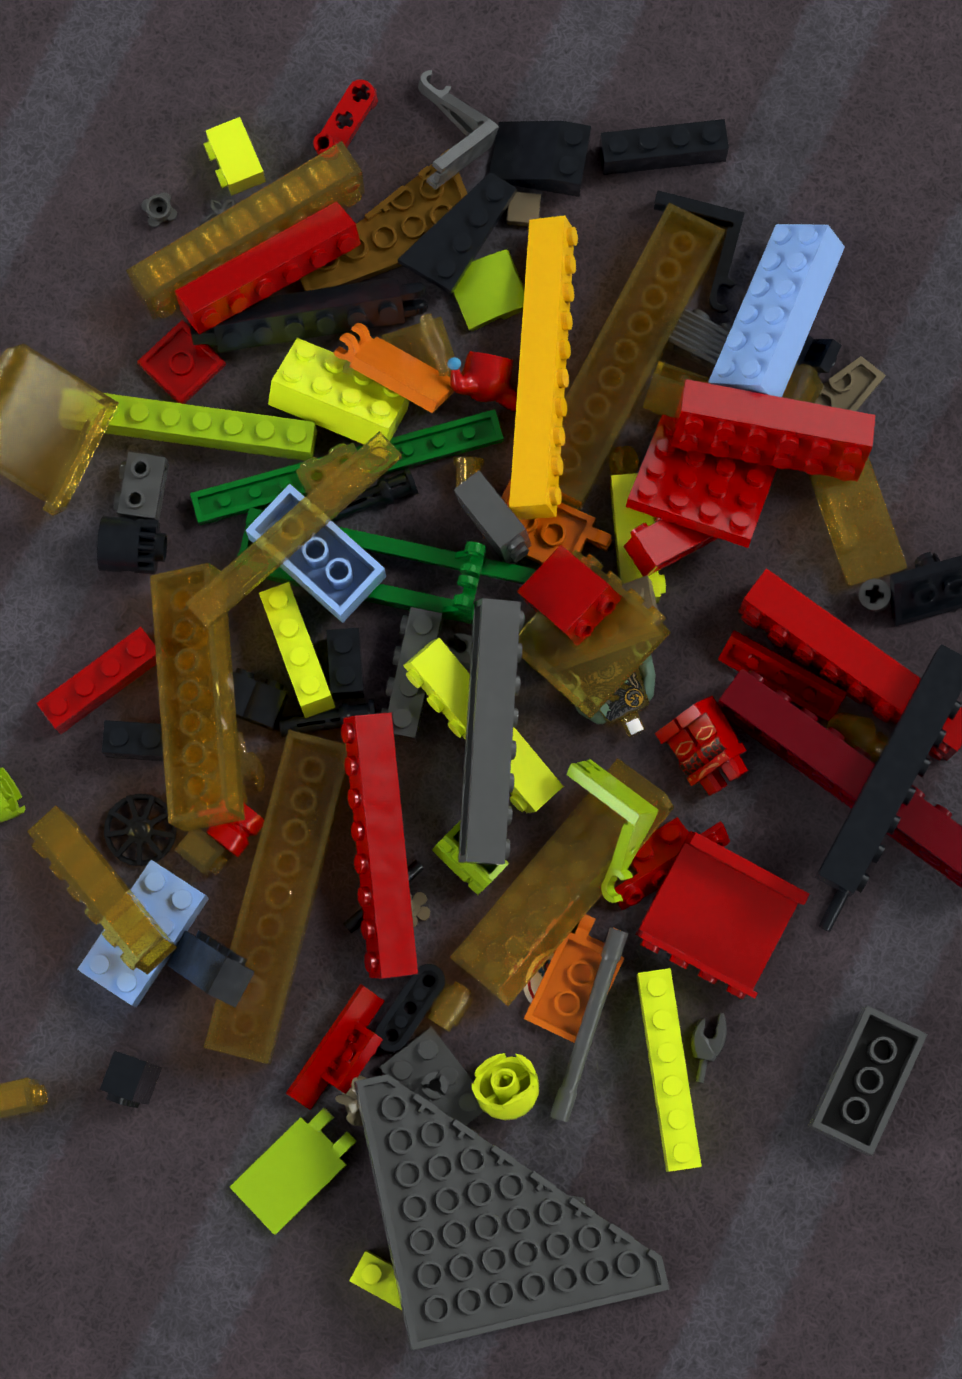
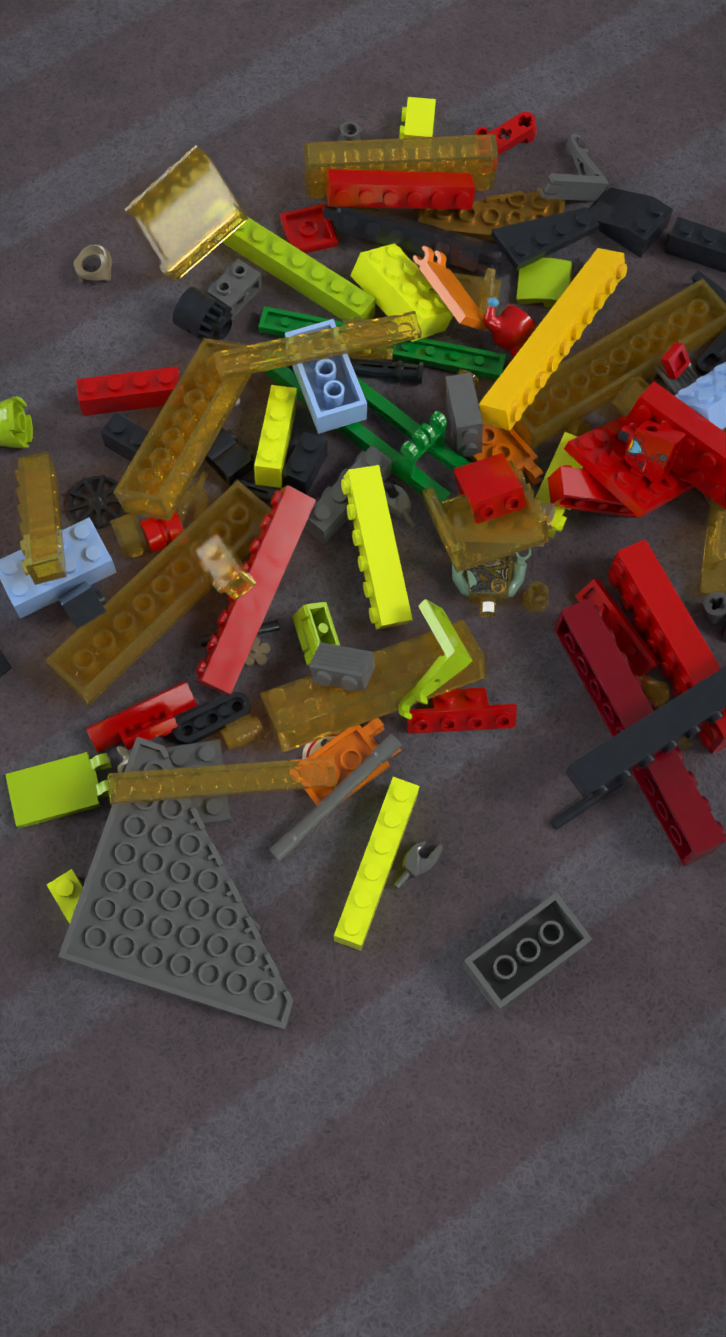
camera: 25 degrees right, 10 degrees down
(340, 845) = (225, 567): none -> clear yellow brick
(468, 1076) = (221, 780): none -> clear yellow plate
(490, 732) = (377, 548): dark grey brick -> none
(506, 1086) = (248, 812): neon yellow cylinder -> none
(523, 208) = (595, 241): dark tan tile -> none
(525, 888) = (342, 667): none -> dark grey brick
(669, 689) = (541, 602): none -> clear yellow bush
(690, 326) = (675, 360): none -> red plate
(705, 745) = (533, 643): red hips -> none
(719, 914) = (479, 770): red panel -> none
(721, 459) = (651, 449): none -> red torso

